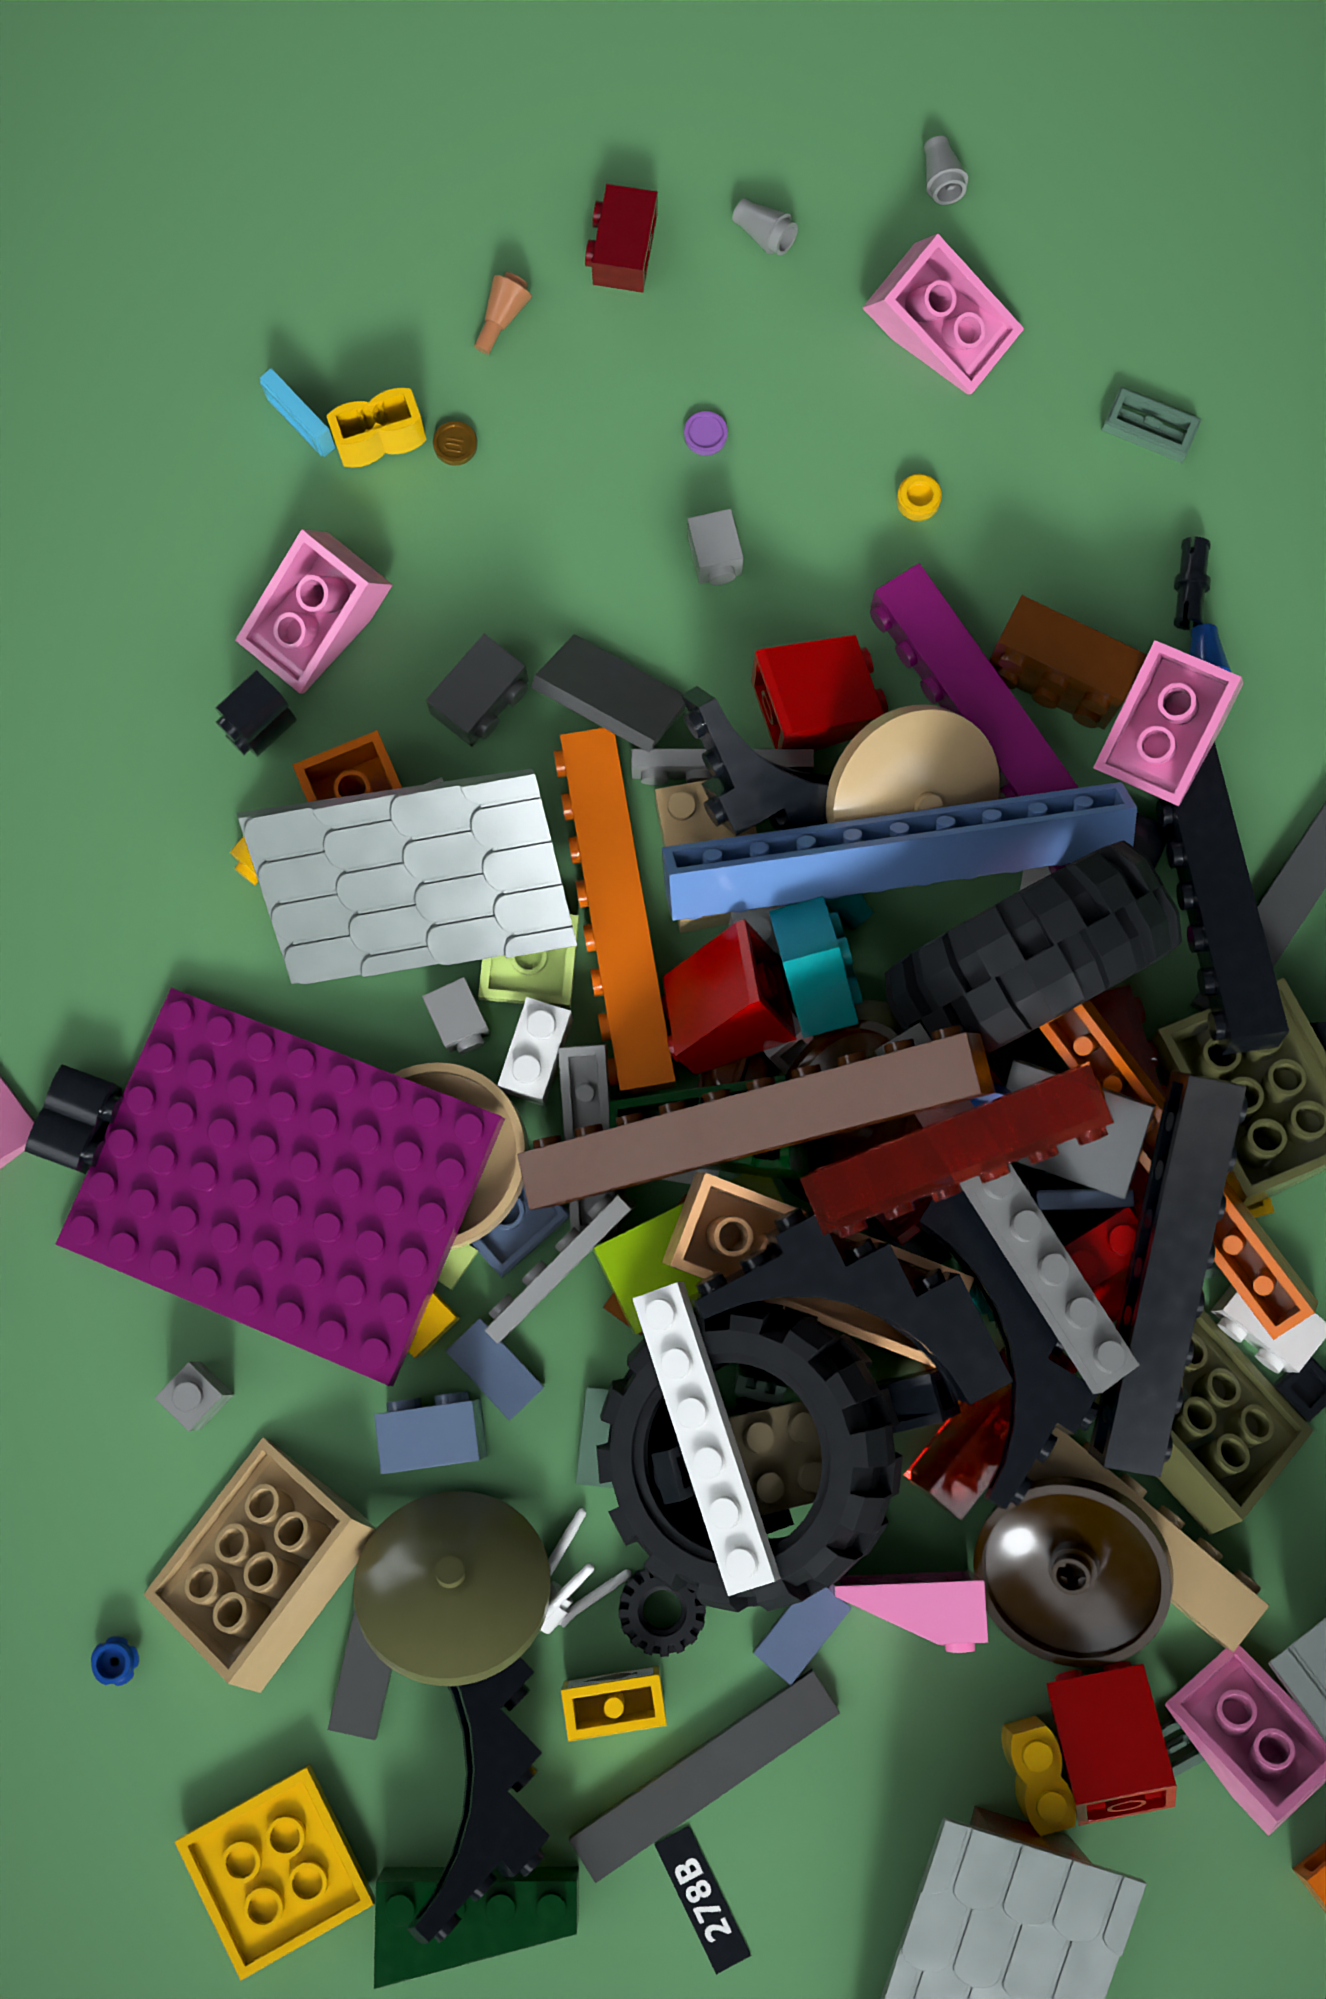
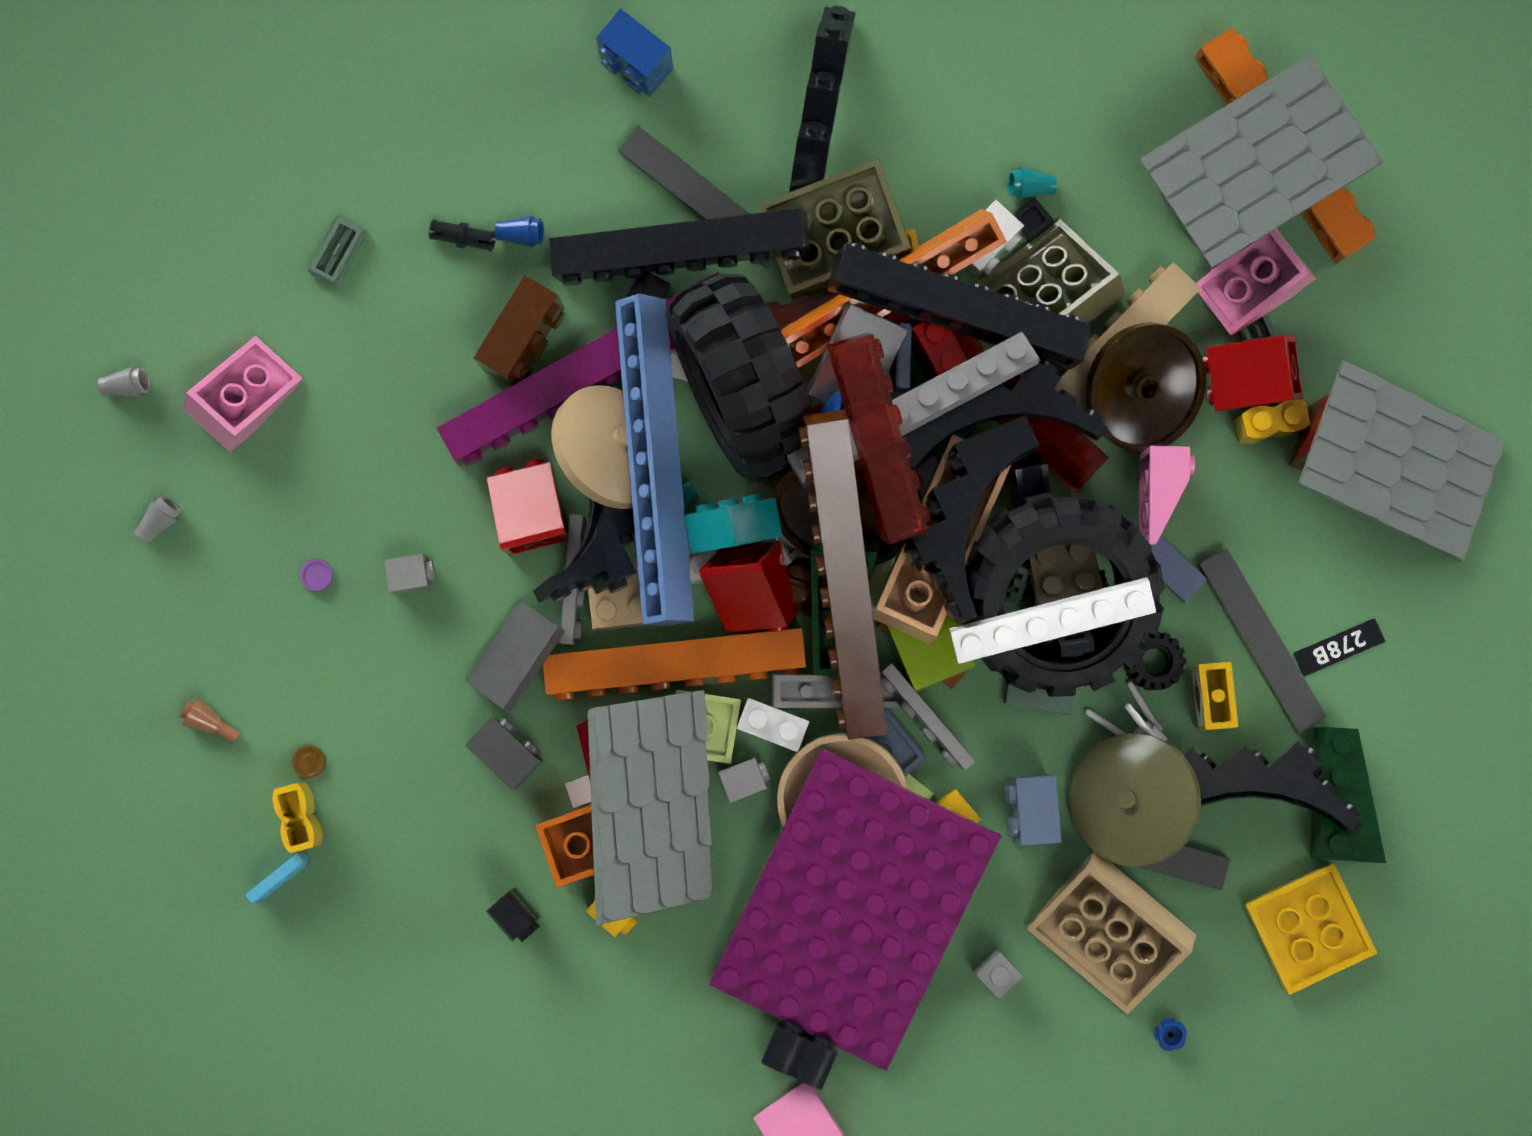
camera: 85 degrees left, 5 degrees up
(312, 609) = (433, 871): bright pink slope -> none
(495, 1370) = (990, 766): sand blue tile -> none
(623, 237) = (158, 625): dark red brick -> none
(919, 497) = (379, 423): yellow tile -> none
(1168, 722) = (573, 264): bright pink slope -> none

